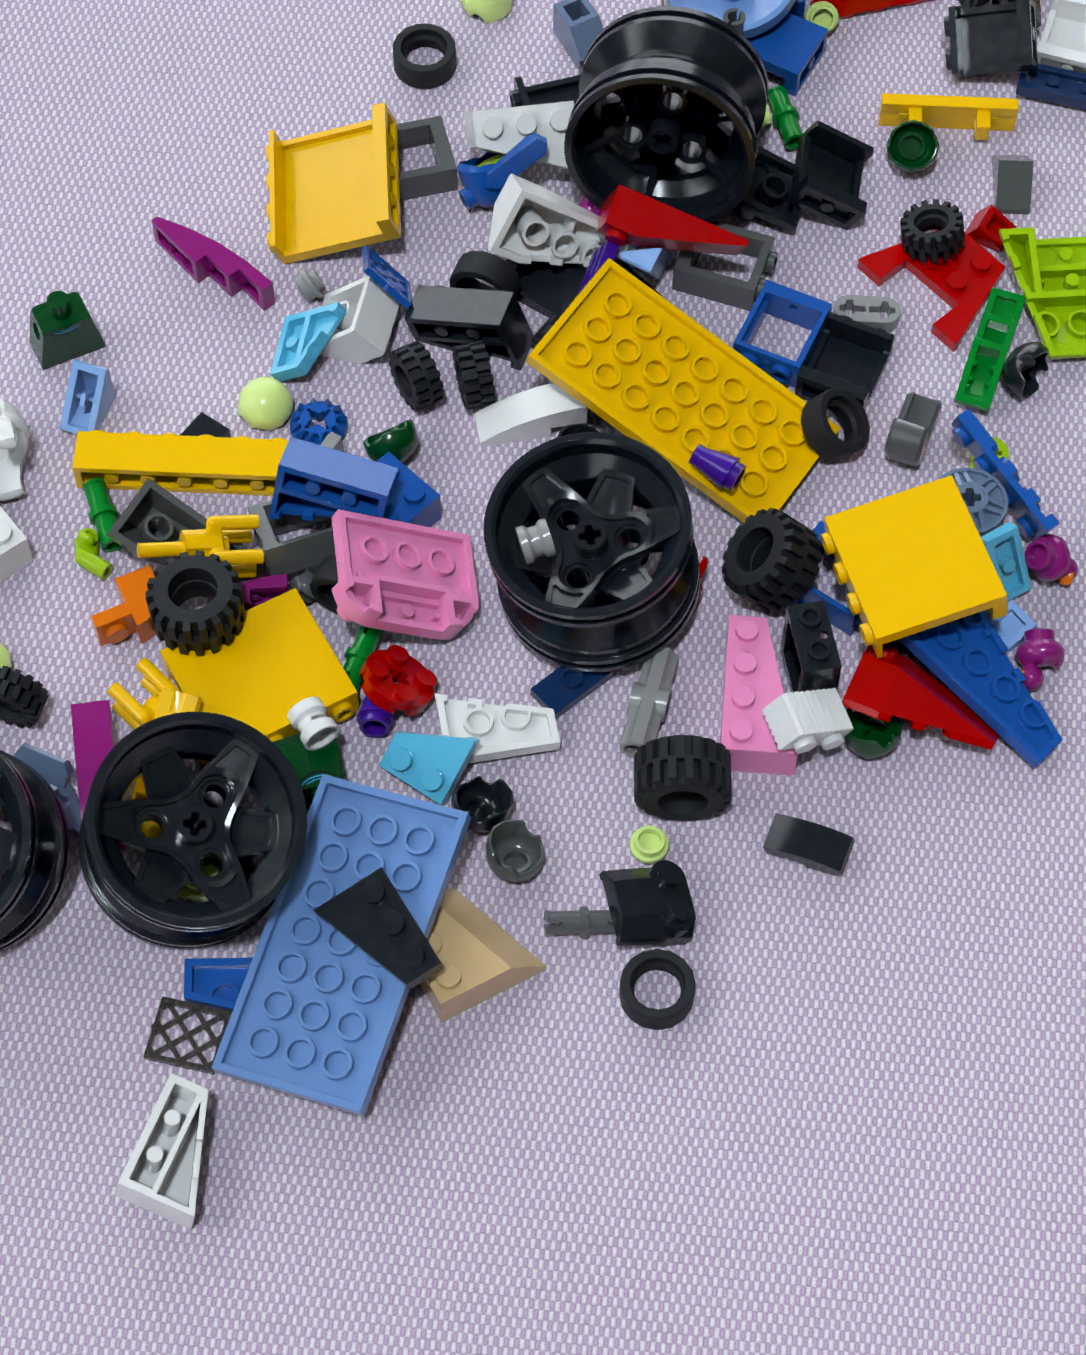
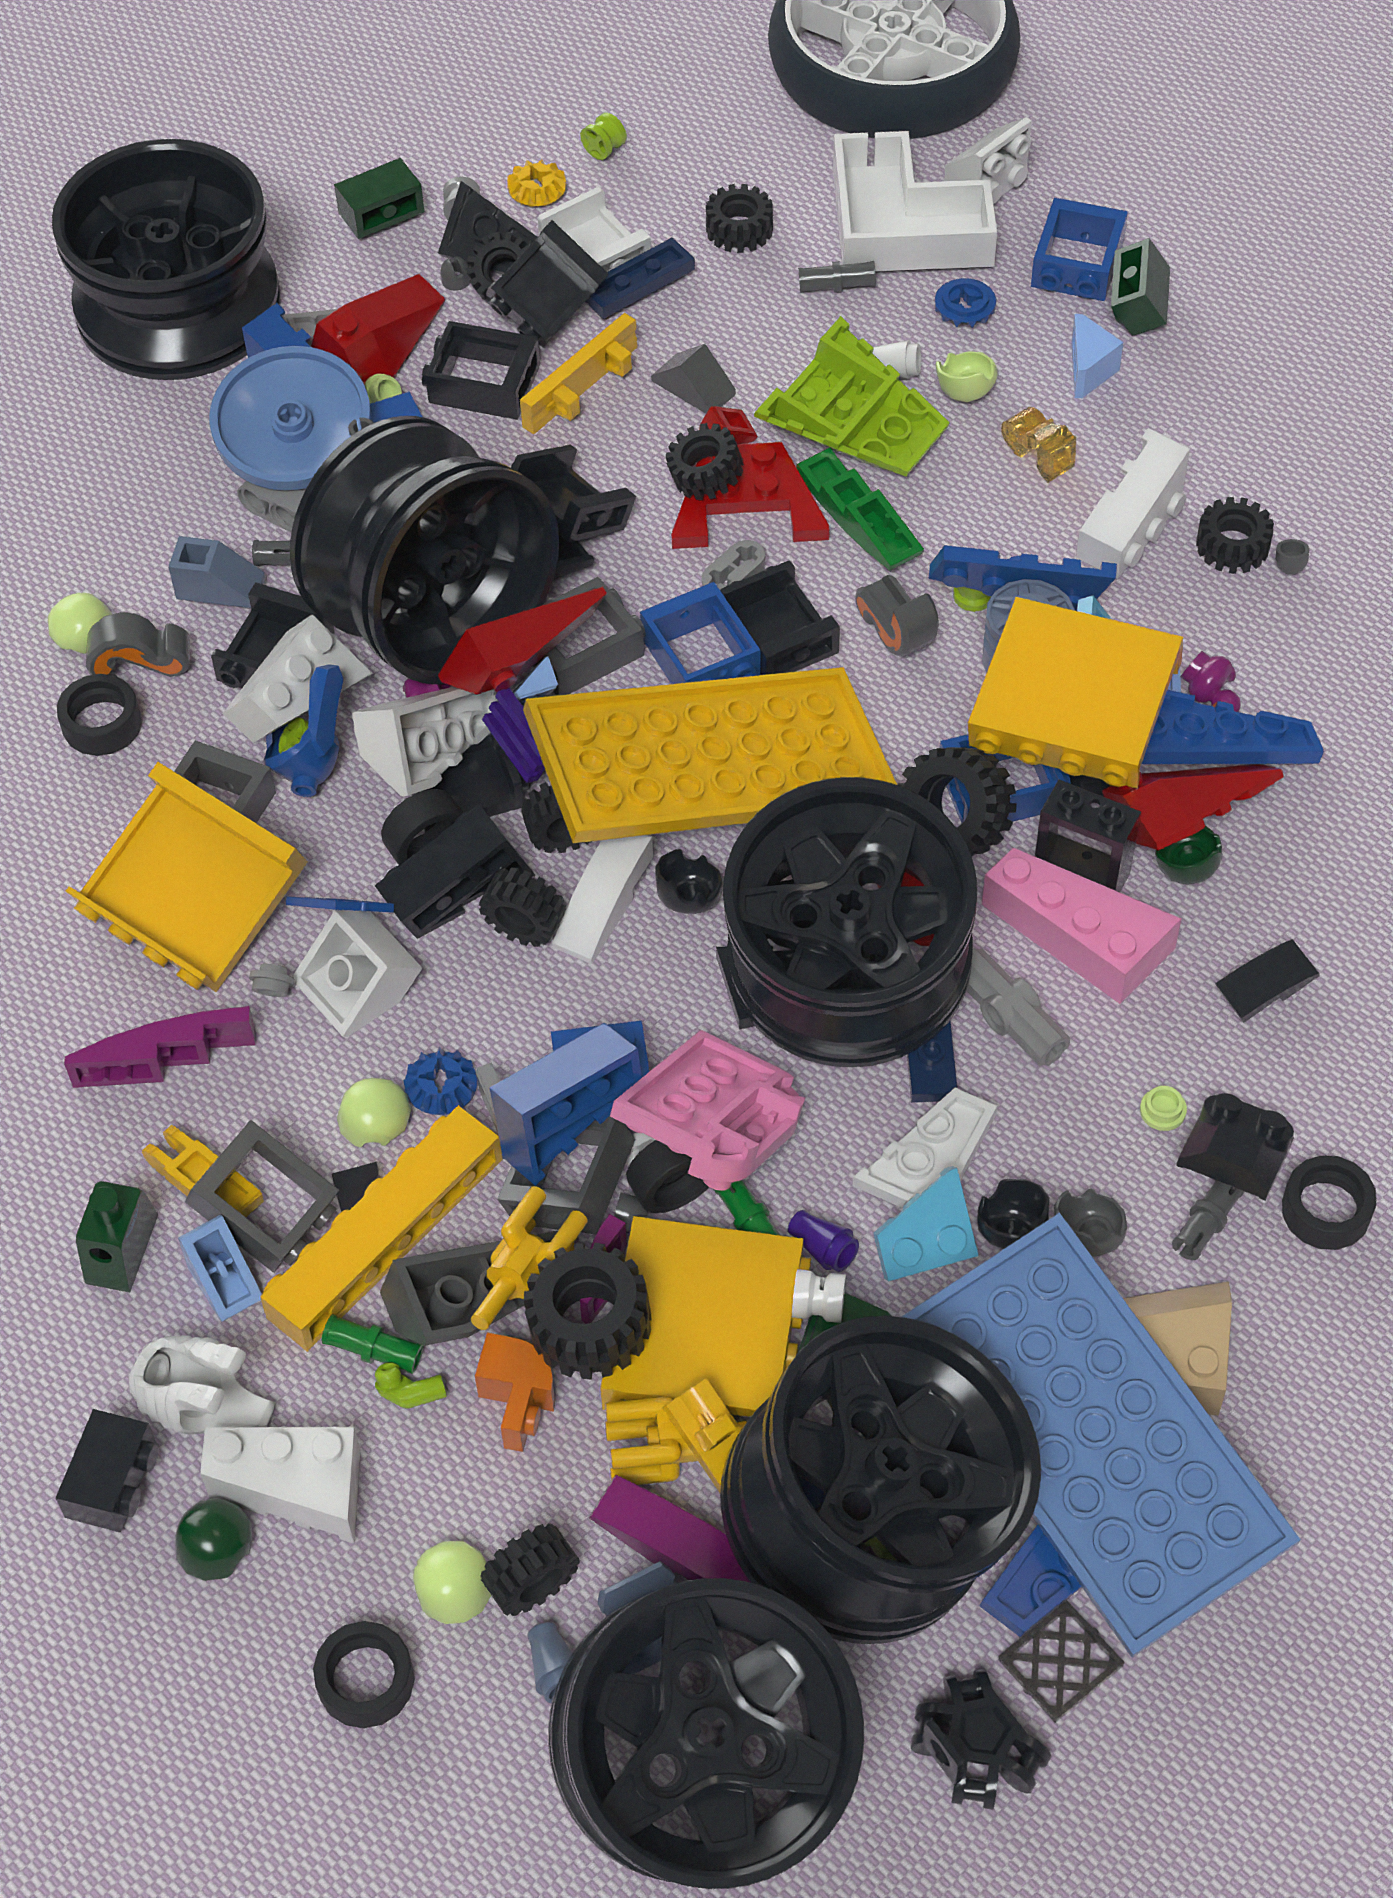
camera: 50 degrees left, 5 degrees down
(91, 1014) = (979, 1734): none -> black piece
(143, 351) = (191, 1165): none -> yellow hinge
(147, 349) = (207, 1203): none -> dark grey window
(168, 1154) = (1203, 1760): white wedge -> none
(304, 339) = (338, 1025): medium azure wing -> none
(382, 927) = (1123, 1375): black wing -> none
(398, 440) = (529, 1027): dark green hair -> none
(414, 685) = (815, 1198): red plate -> none
(416, 375) = (477, 955): black tyre -> none
(491, 36) = (137, 642): none -> dark grey animal
(535, 541) = (841, 939): light grey wheel -> none
(682, 777) = (1133, 1024): black tyre -> none
(718, 467) = (824, 767): dark purple cone -> none
(808, 720) = (1160, 883): white brick -> none
(851, 416) = (843, 665): black tyre -> none
(912, 146) = (595, 418): dark green hair -> none
(914, 79) = (484, 345): none -> black window
(1022, 366) = (901, 494): black hair -> none
(1051, 560) = (1126, 602): magenta animal -> none

